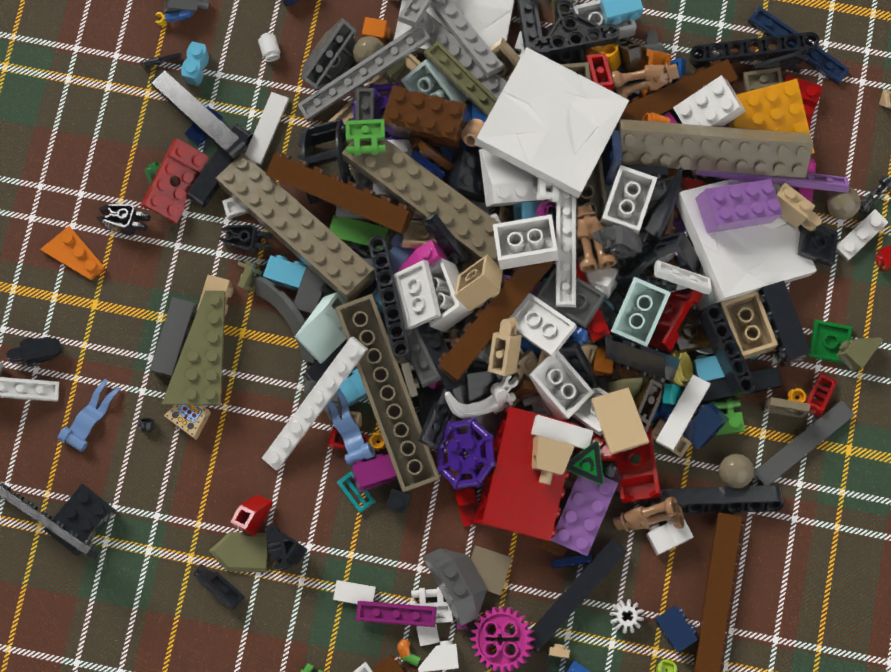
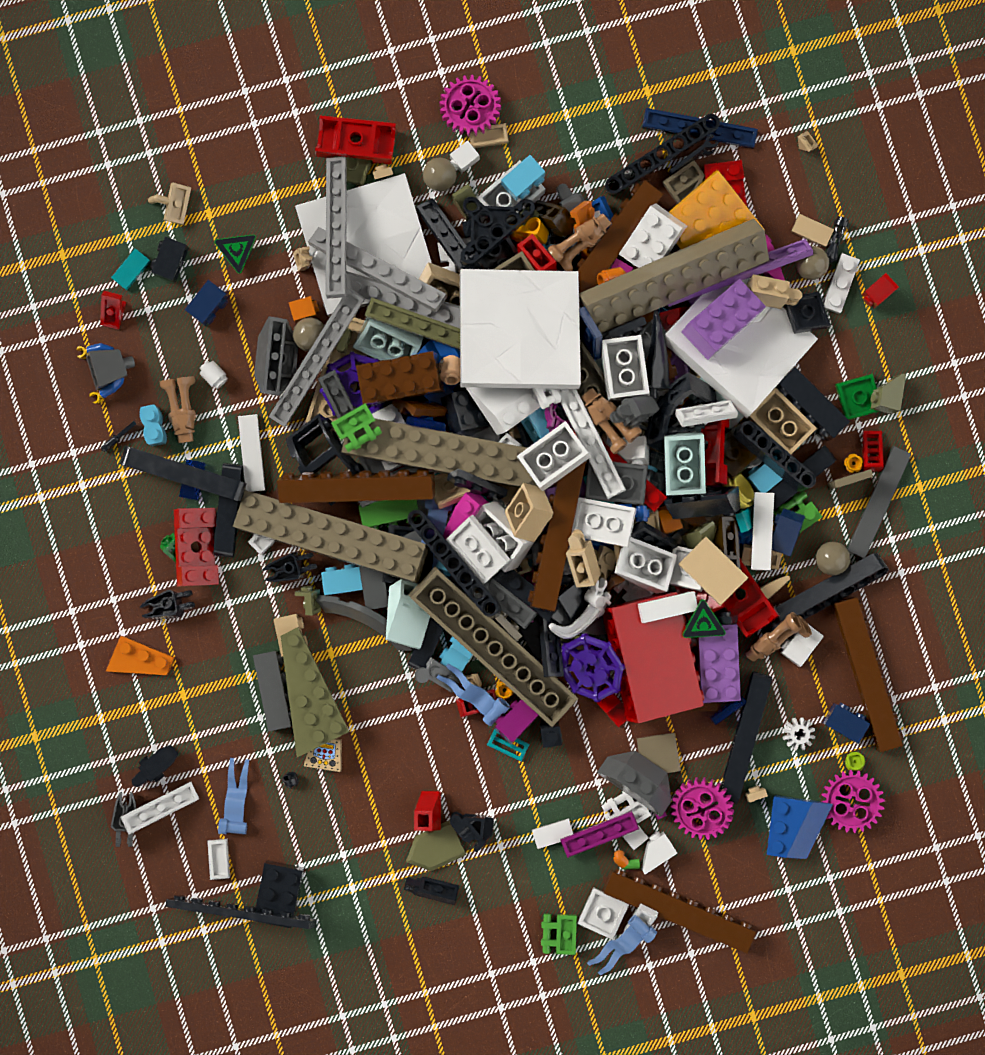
camera: 30 degrees left, 10 degrees up
(45, 462) = (218, 859): none -> white tile
(223, 70) = (183, 418): none -> medium nougat piece
(314, 403) = (434, 688): white plate -> none
(550, 457) = (669, 635): tan torso -> none
(669, 470) = (772, 587): none -> tan slope
(857, 177) = (812, 230): none -> tan tile

